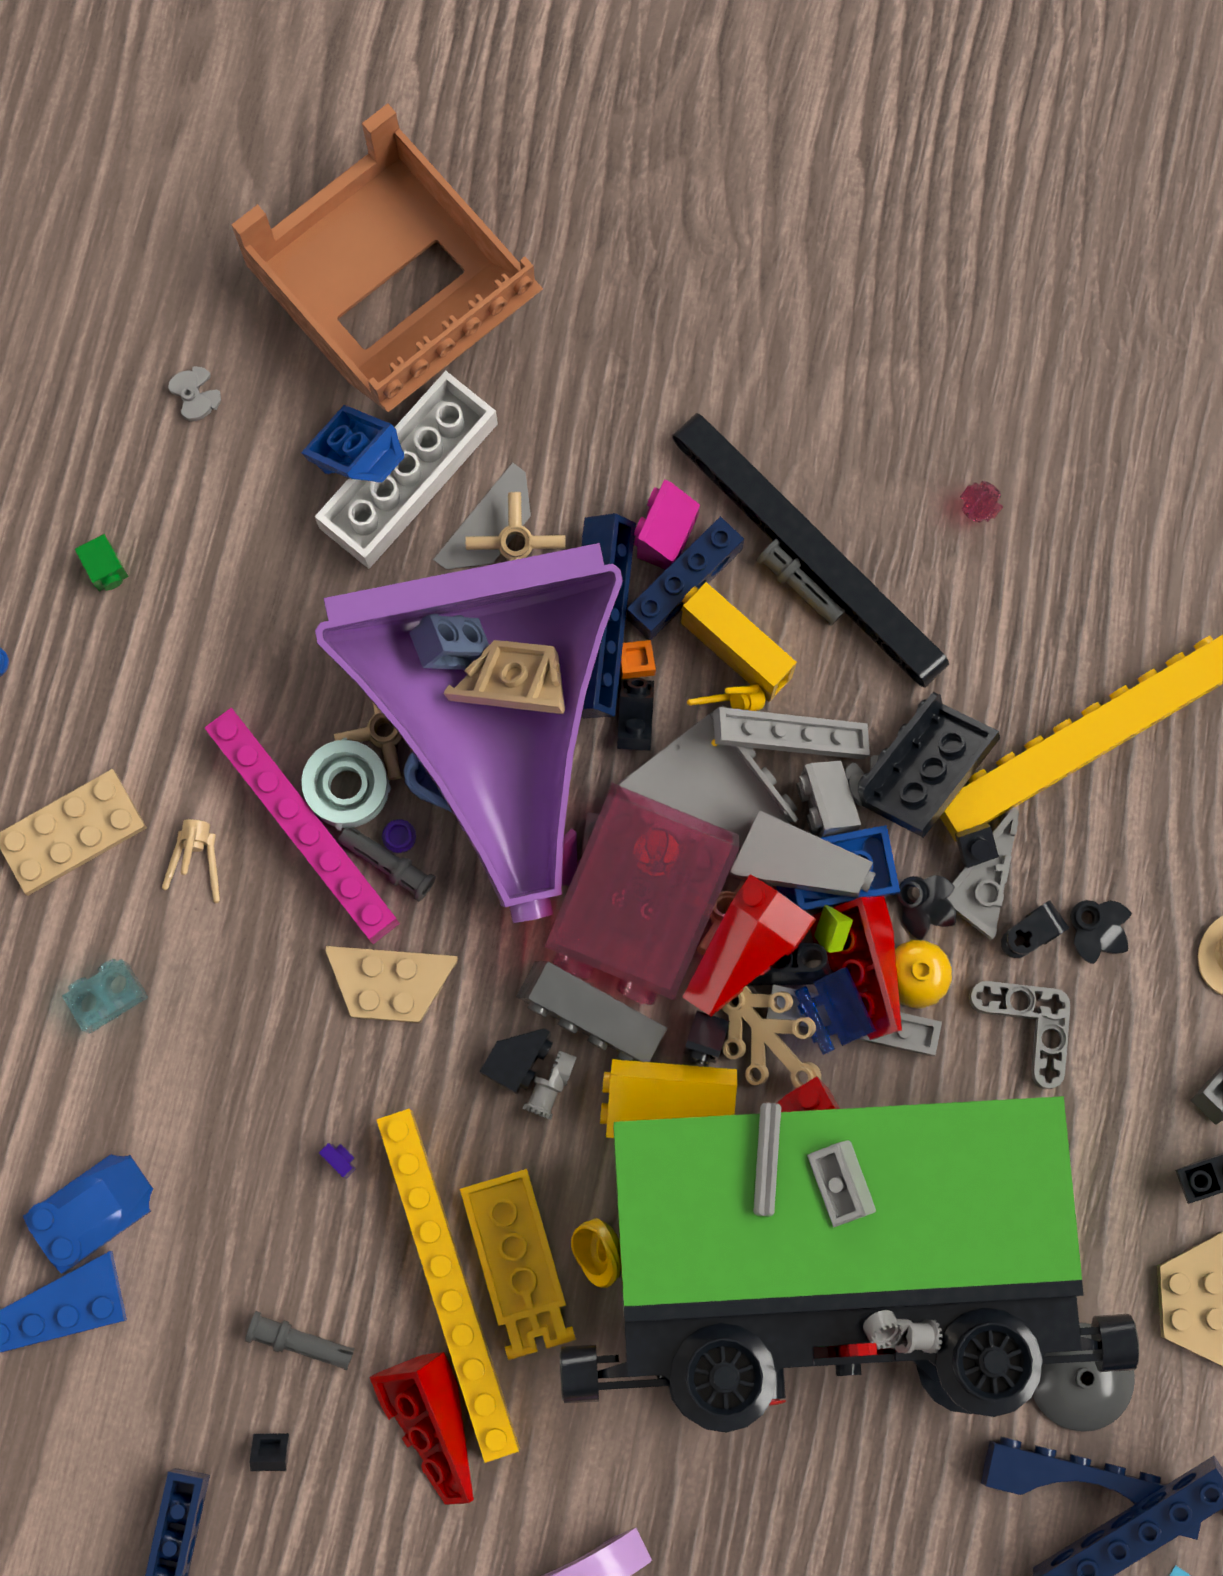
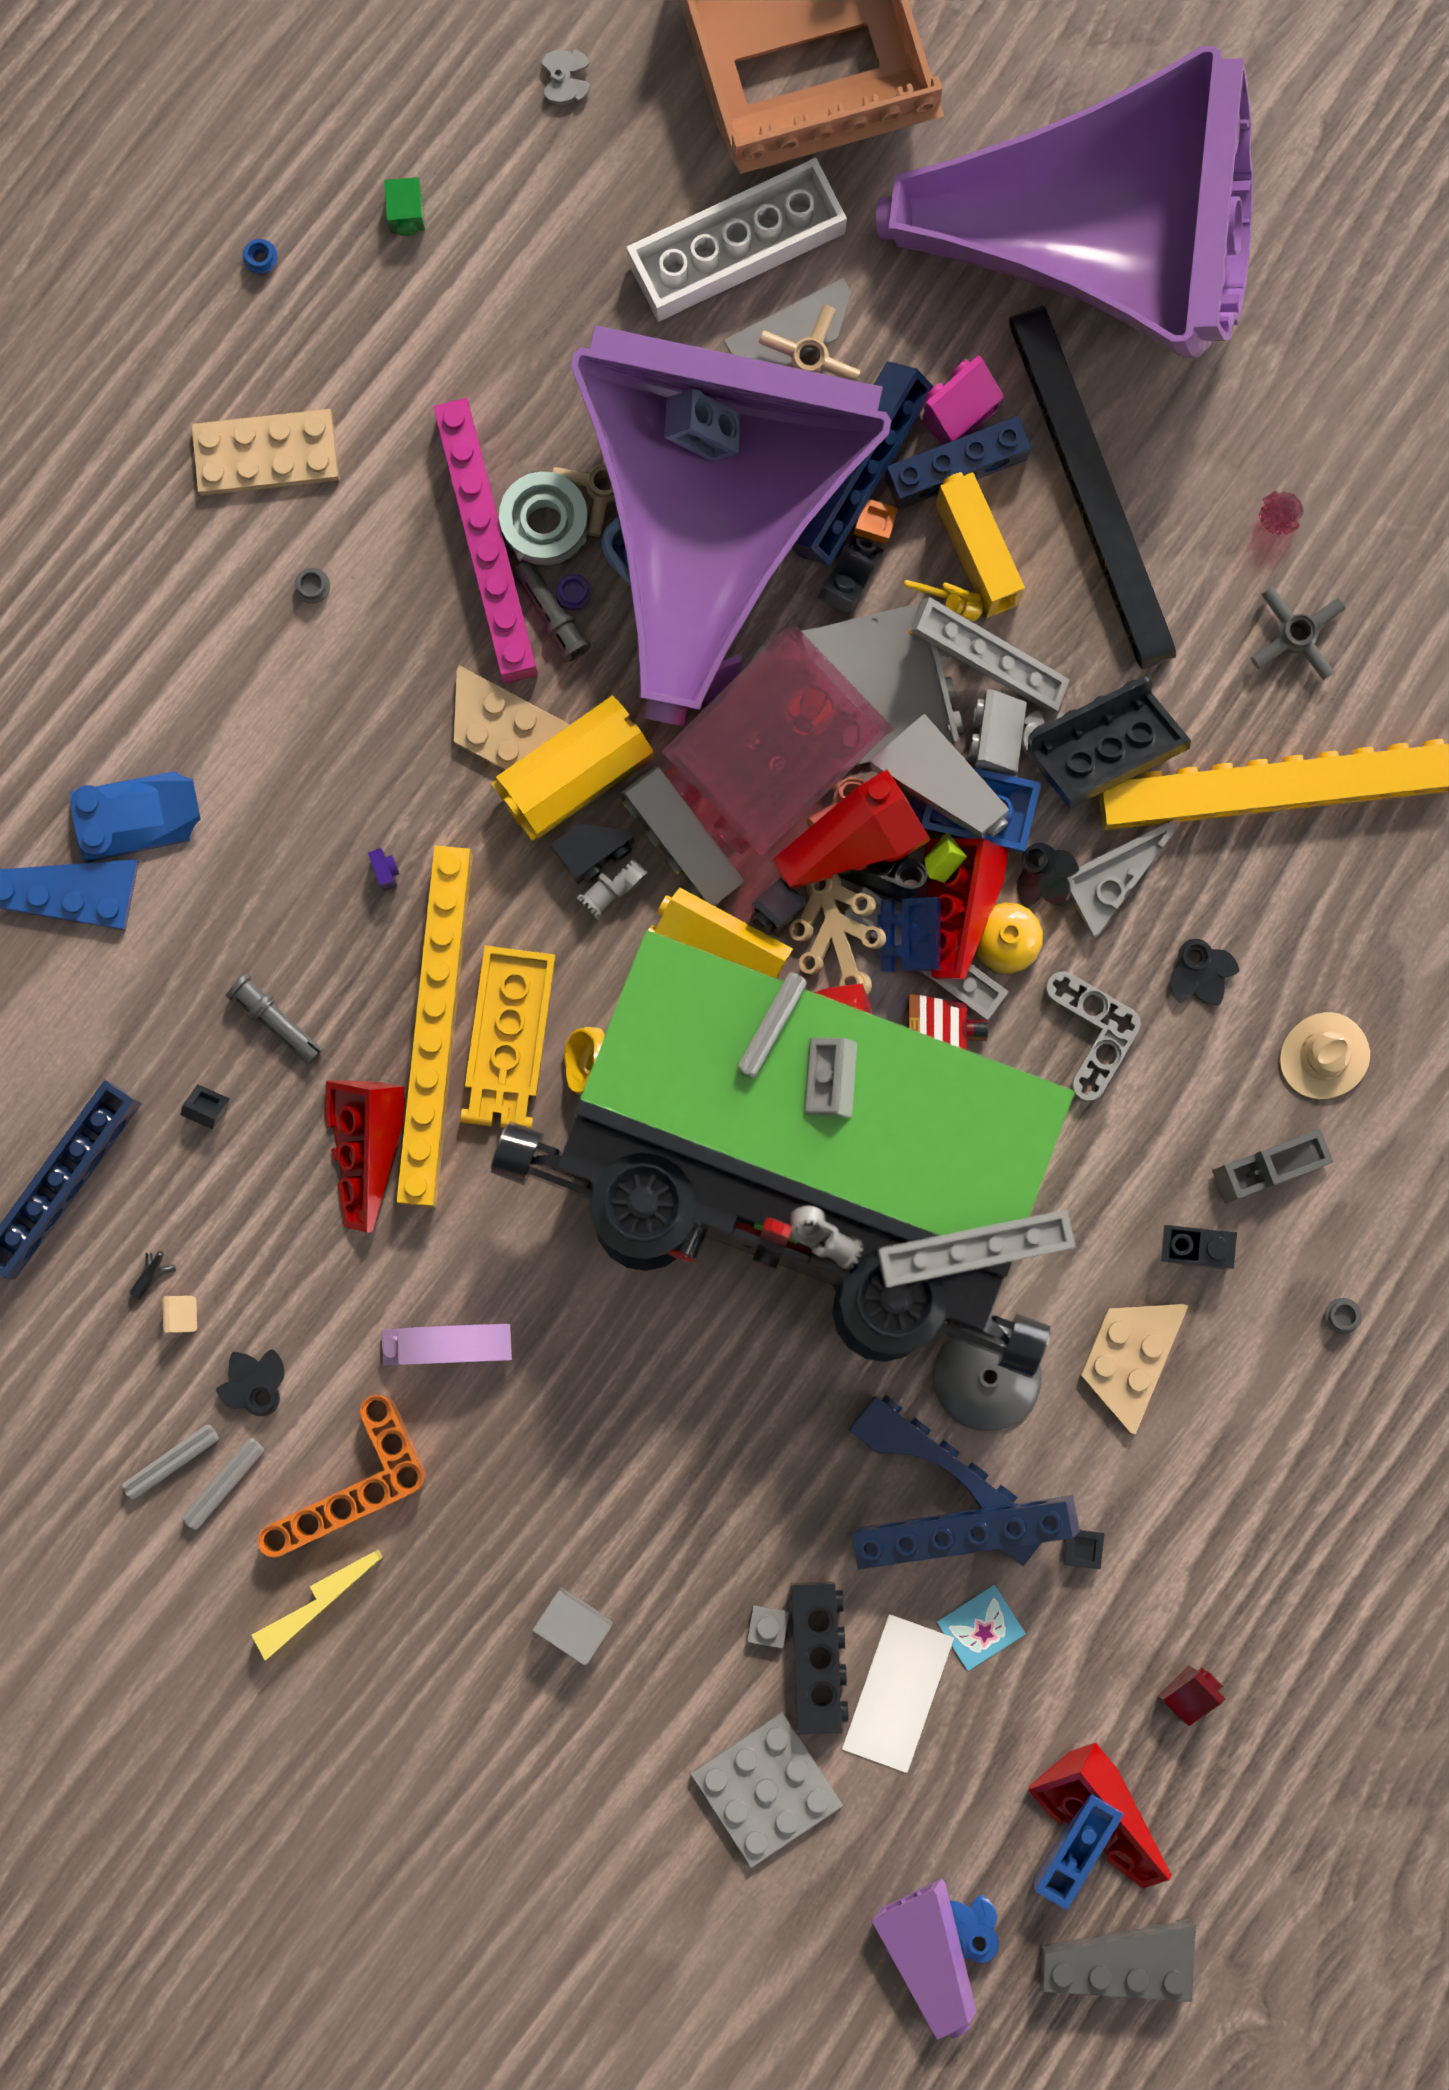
camera: 25 degrees right, 5 degrees up
(108, 1004) = (232, 630): clear light blue brick -> none
(163, 932) = (312, 585): none -> dark grey plate
(193, 838) = (378, 508): tan plant -> none
(356, 446) = (695, 195): blue slope -> none
(469, 994) = (573, 768): none -> yellow brick
(513, 677) = (745, 484): tan wing -> none
(719, 305) = (1113, 206): none -> medium lavender piece
(789, 572) = (1063, 500): dark grey pin -> none
(897, 1079) = (944, 1020): none -> torso
(976, 845) = (1119, 839): black plate -> none
(1037, 929) = (1143, 946): black piece -> none
(1045, 1283) = (976, 1248): none -> light grey plate
(1049, 587) = (1288, 643): none -> dark grey bar

